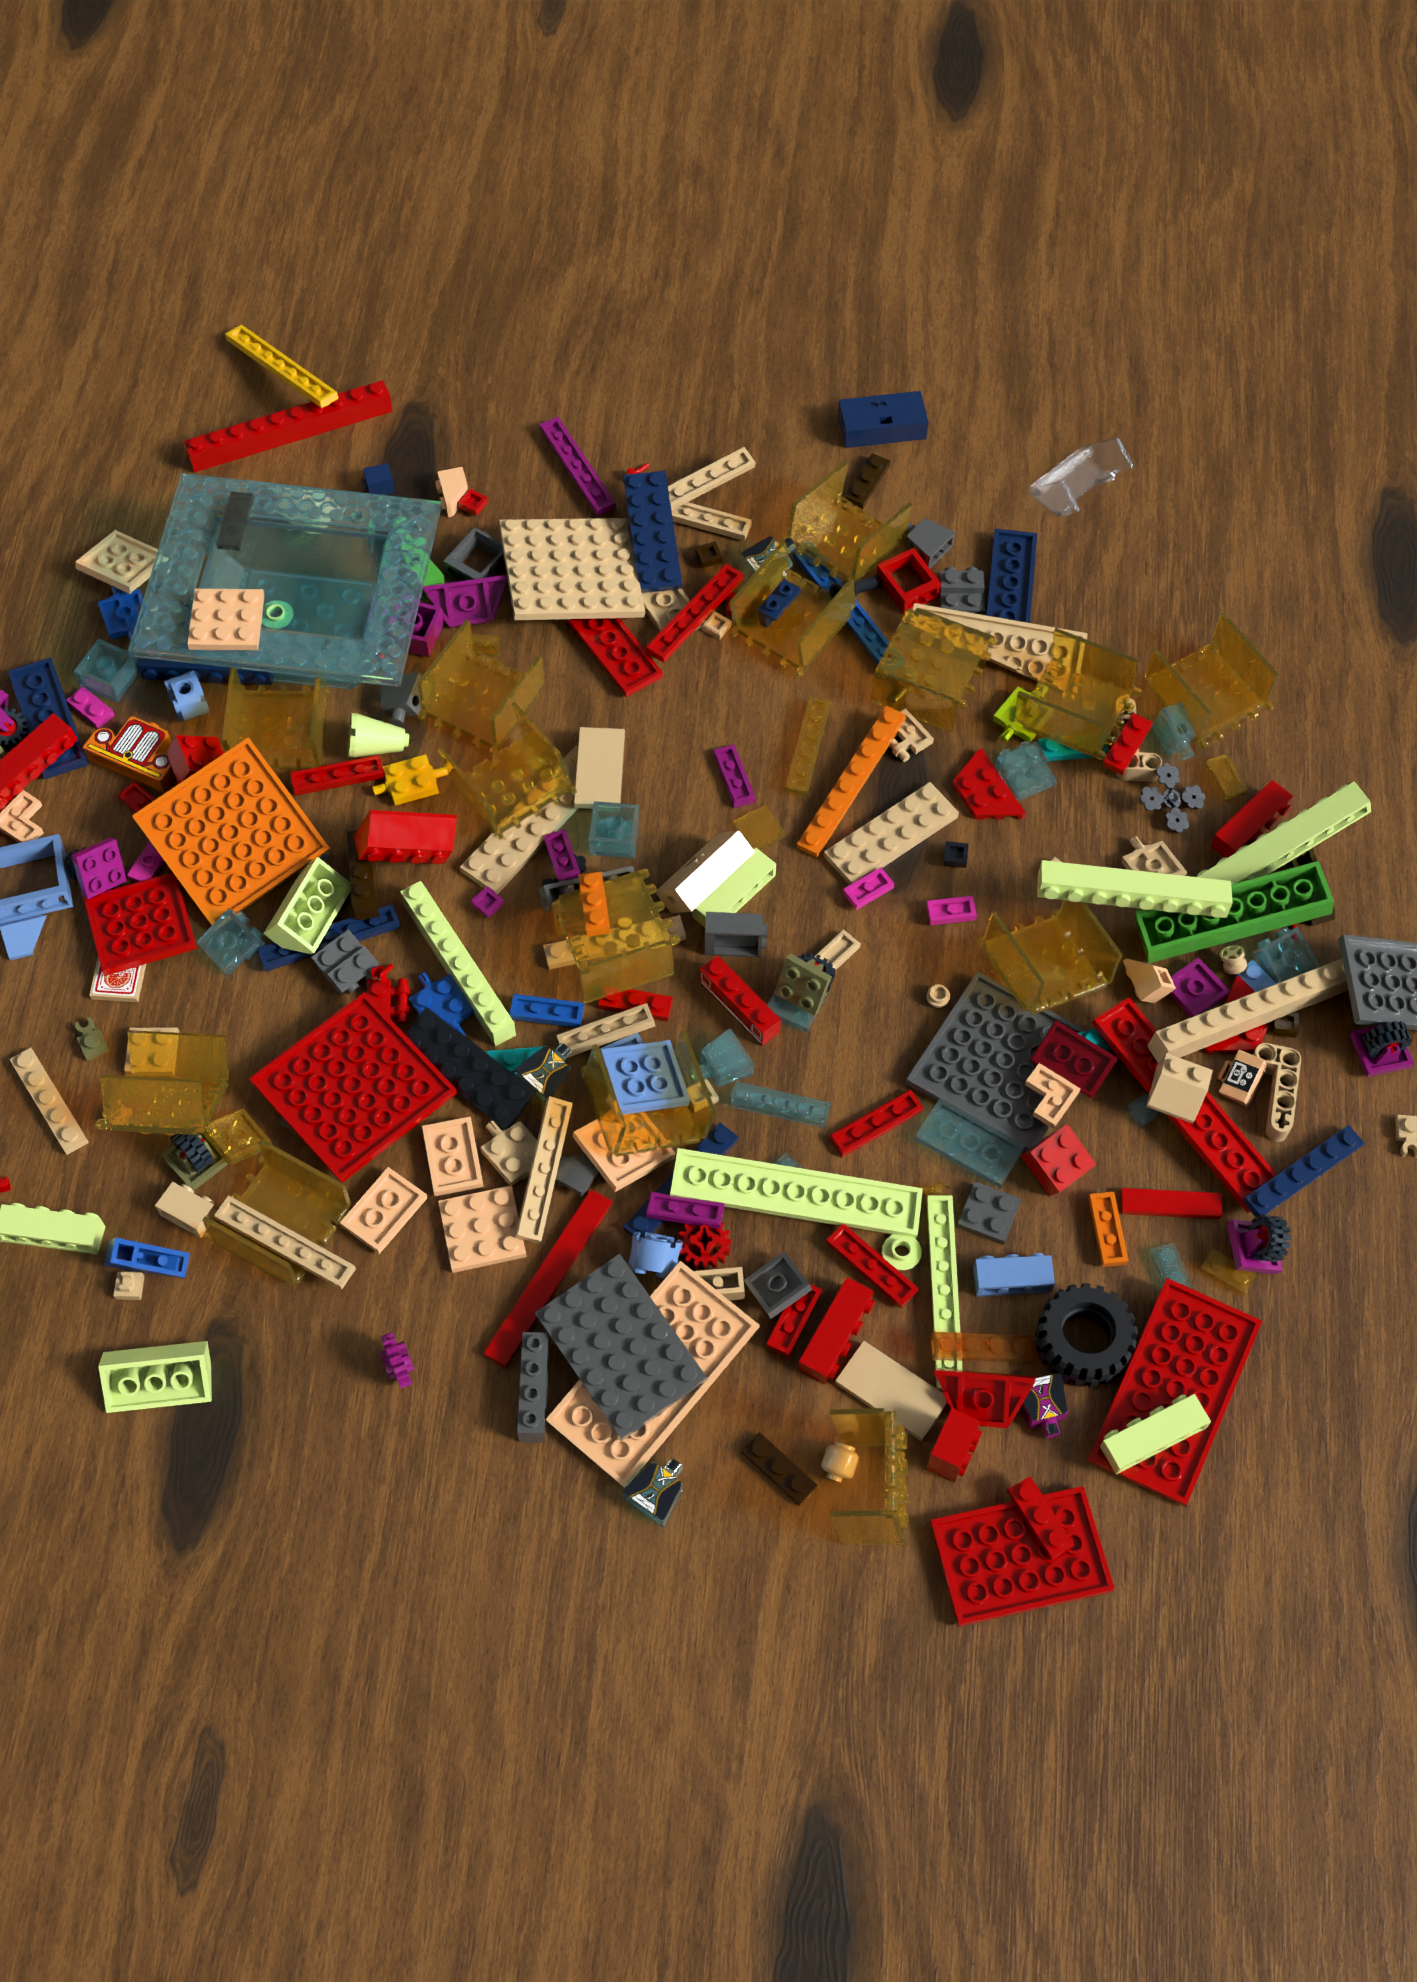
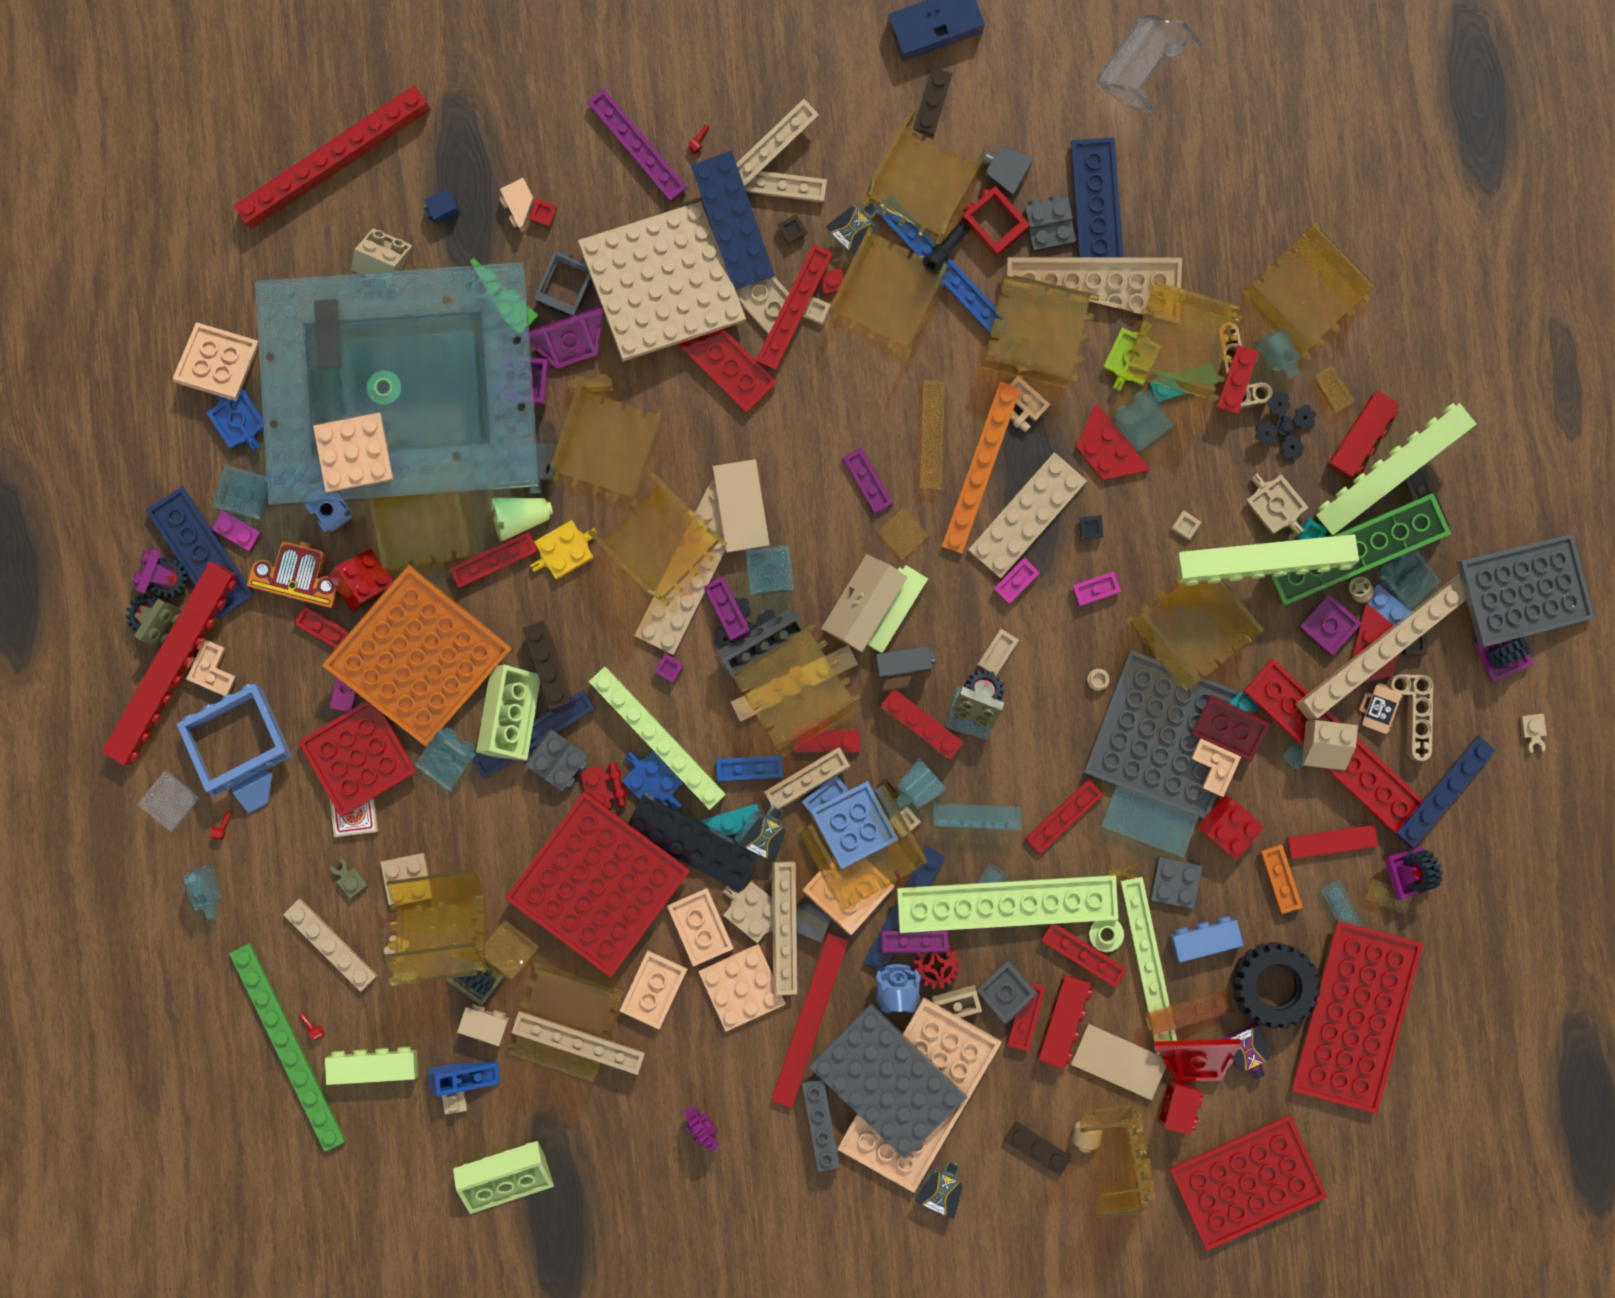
camera: 10 degrees left, 25 degrees up
(96, 867) = (299, 711): magenta plate -> none
(282, 366) = (304, 87): yellow plate -> none
(381, 972) = (592, 762): red hand -> none
(406, 837) = (580, 631): slope -> none
(594, 904) = (775, 678): orange plate -> none
(777, 602) = (876, 285): dark blue bracket -> none
(1040, 1518) = (1259, 1152): red plate -> none
(1149, 980) = (1287, 626): light nougat slope -> none
(1154, 1433) = (1345, 1064): yellowish green brick -> none

